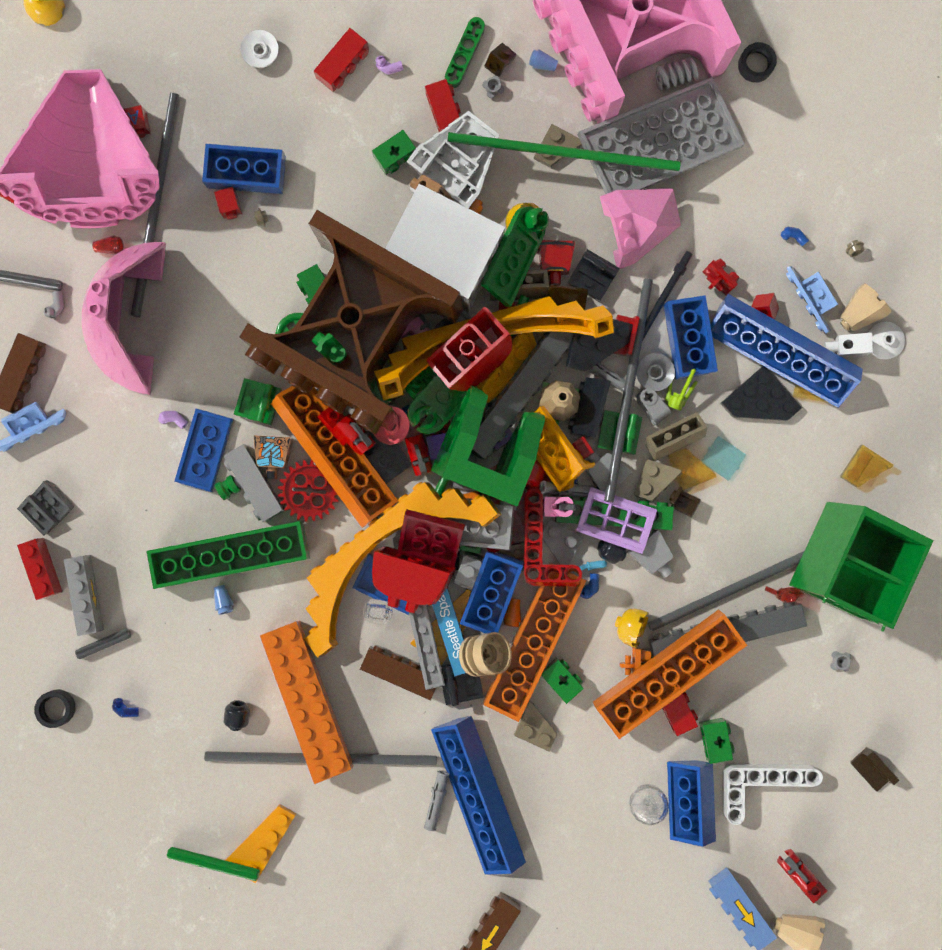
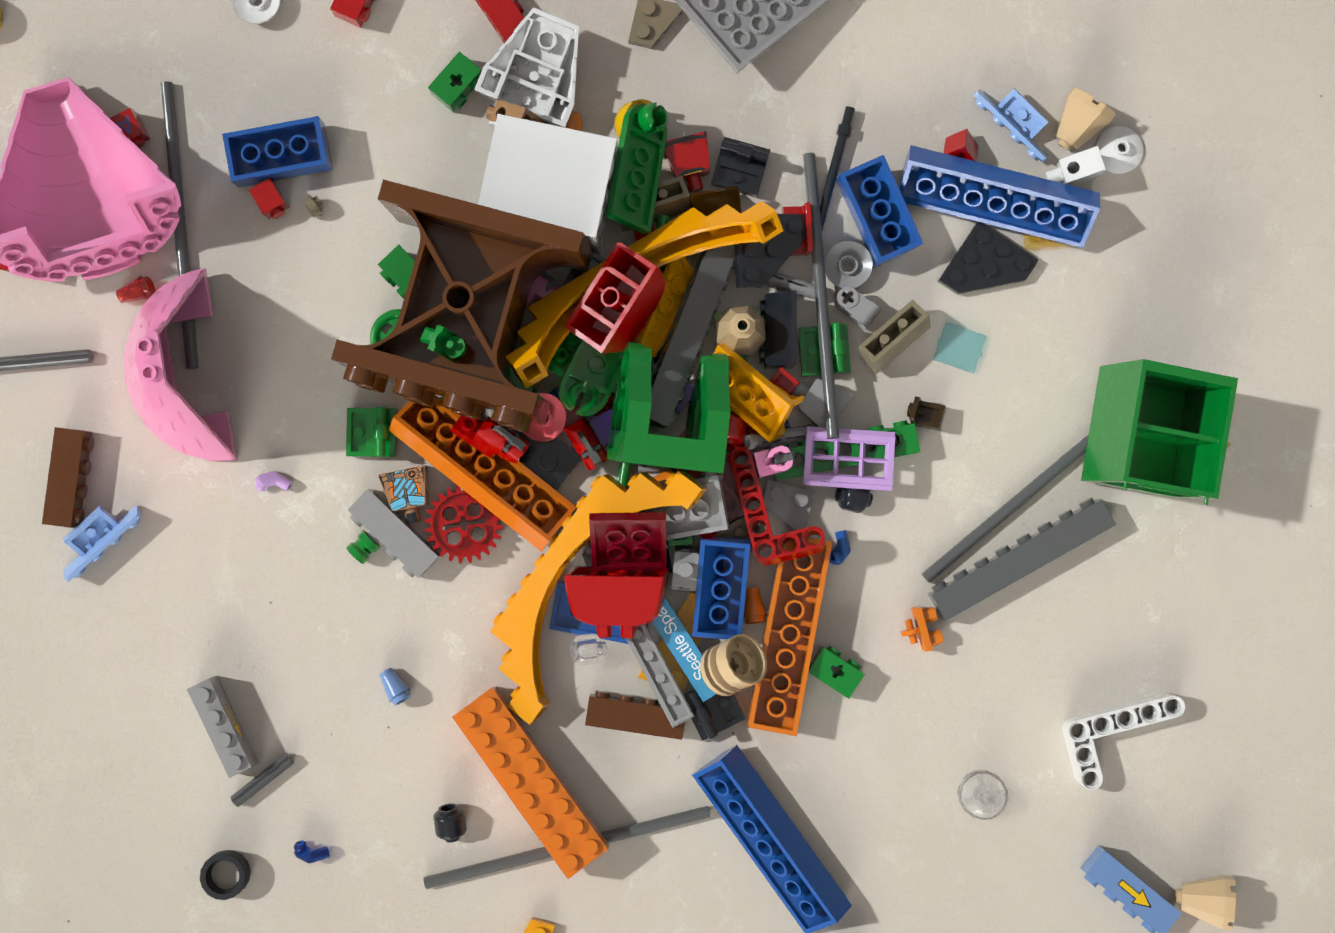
camera: 10 degrees left, 0 degrees up
(39, 568) = (160, 708): red brick -> none
(45, 507) = (146, 632): dark grey slope -> none
(57, 306) = (93, 383): light grey arm -> none
(204, 450) = (321, 509): blue tile -> none
(228, 554) = (386, 629): green brick -> none
(438, 794) = (722, 860): light grey pin -> none
(535, 728) = (819, 740): dark tan wing -> none
(563, 151) = (663, 26): green piece -> none
(593, 565) = (836, 521): medium azure piece -> none
(631, 626) = (903, 583): yellow cylinder -> none
(640, 220) = (779, 85): bright pink wedge -> none
(654, 555) = (907, 488): light grey torso -> none
(655, 479) = (883, 395): dark tan wing -> none
(669, 673) = (964, 627): orange brick -> none
(678, 401) = (886, 292): lime plant -> none
(680, 716) = (984, 668): red hinge -> none
(691, 802) = (1033, 777): blue slope -> none
(693, 469) = (921, 372): clear yellow wing -> none
(710, 731) = (1044, 708): green brick -> none
(719, 278) = (896, 129): red hips -> none
(786, 594) = (1081, 492): clear red piece -> none
(794, 233) = (972, 48): blue arm -> none
(802, 876) = (1192, 830): red plate -> none
(845, 665) = (1174, 551): light grey plate -> none
(855, 248) = (1051, 47): dark tan plate -> none
(864, 466) = (1134, 311): clear yellow wing -> none
(873, 769) = (1244, 677): dark brown panel -> none

